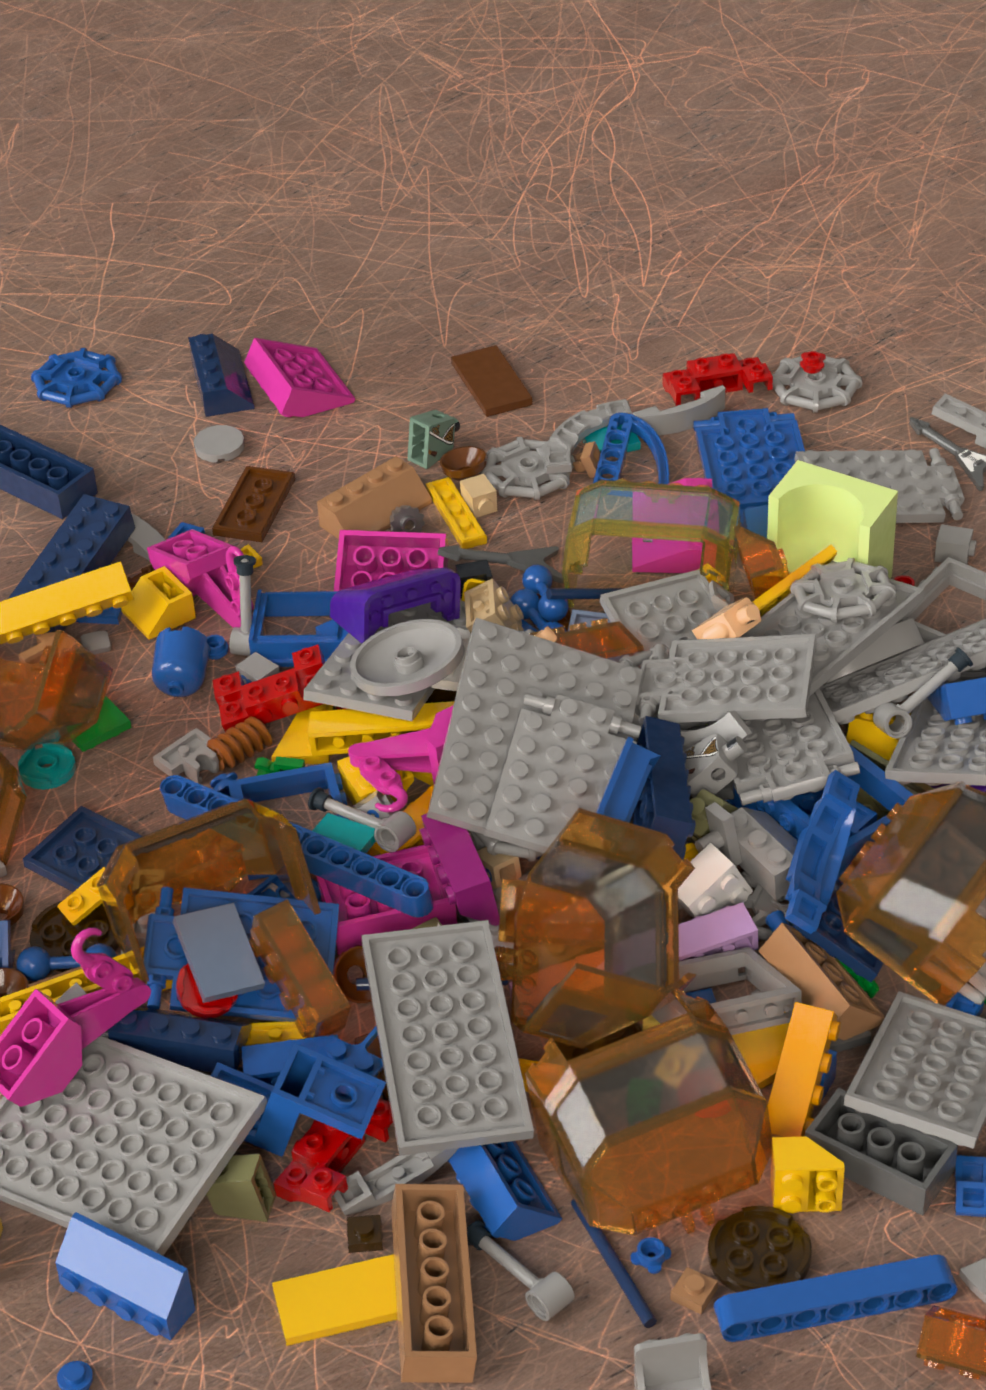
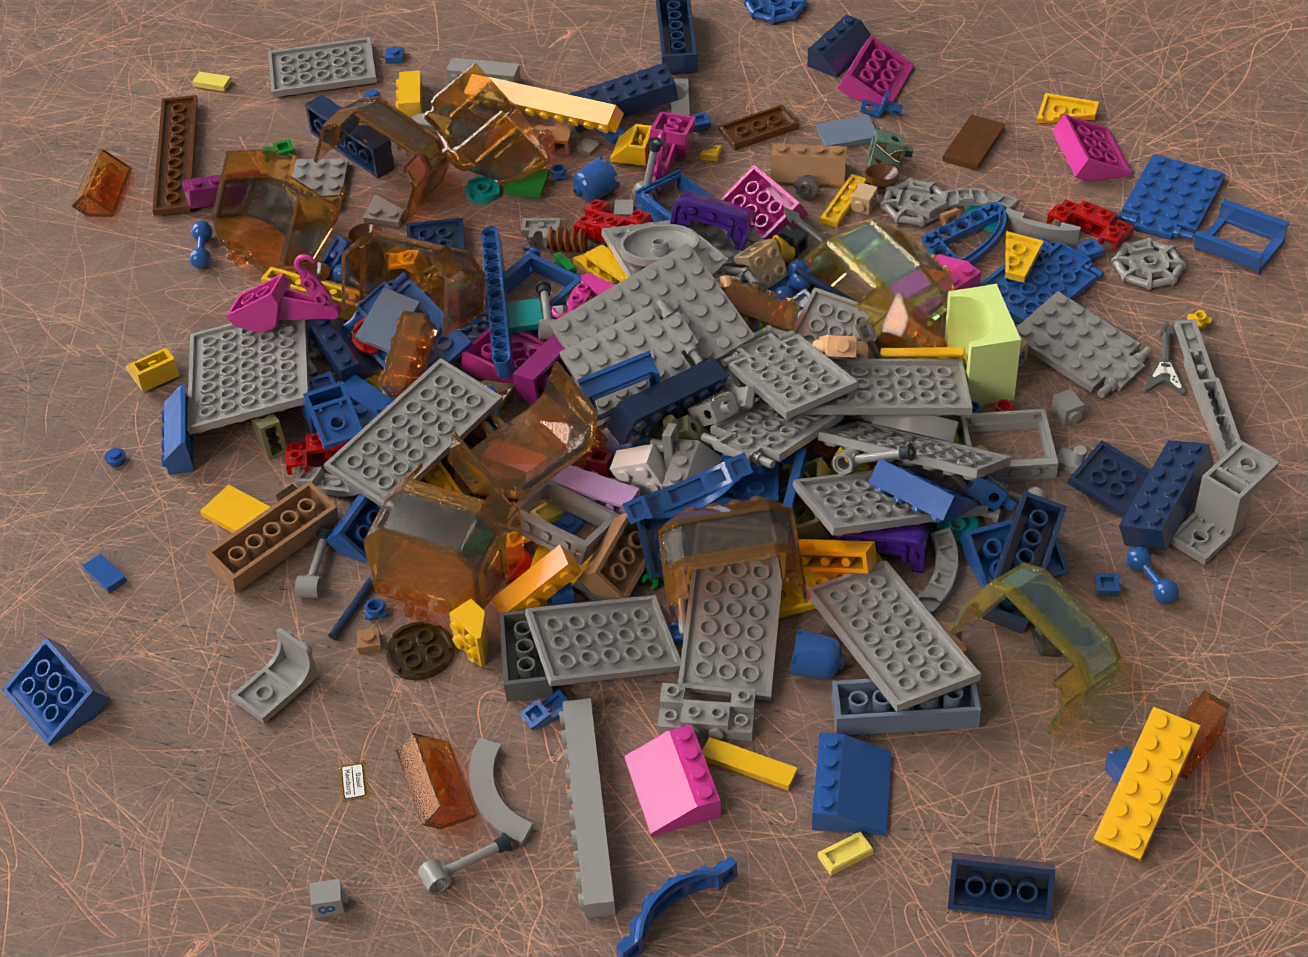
camera: 50 degrees right, 5 degrees up
(115, 688) = (558, 172): none -> blue plate
(218, 646) = (627, 185): blue plate -> none
(219, 443) = (789, 84): light grey tile -> none
(355, 399) = (885, 105): none -> blue bracket
(355, 450) = (846, 132): none -> sand blue tile
(529, 298) = (1055, 106): none -> yellow wing
(610, 319) = (1090, 150): none -> dark pink slope
(712, 443) = (1020, 255): none -> yellow wing
(741, 315) = (1171, 198): none -> blue plate
(750, 400) = (1090, 248): none -> blue plate
(812, 361) = (1155, 249): red plate -> none
(834, 1298) = (412, 697): blue beam -> none
(843, 590) = (930, 373): light grey plate -> none
(849, 288) = (1249, 220): none -> blue piece
(928, 398) = (1201, 318): none -> yellow plate

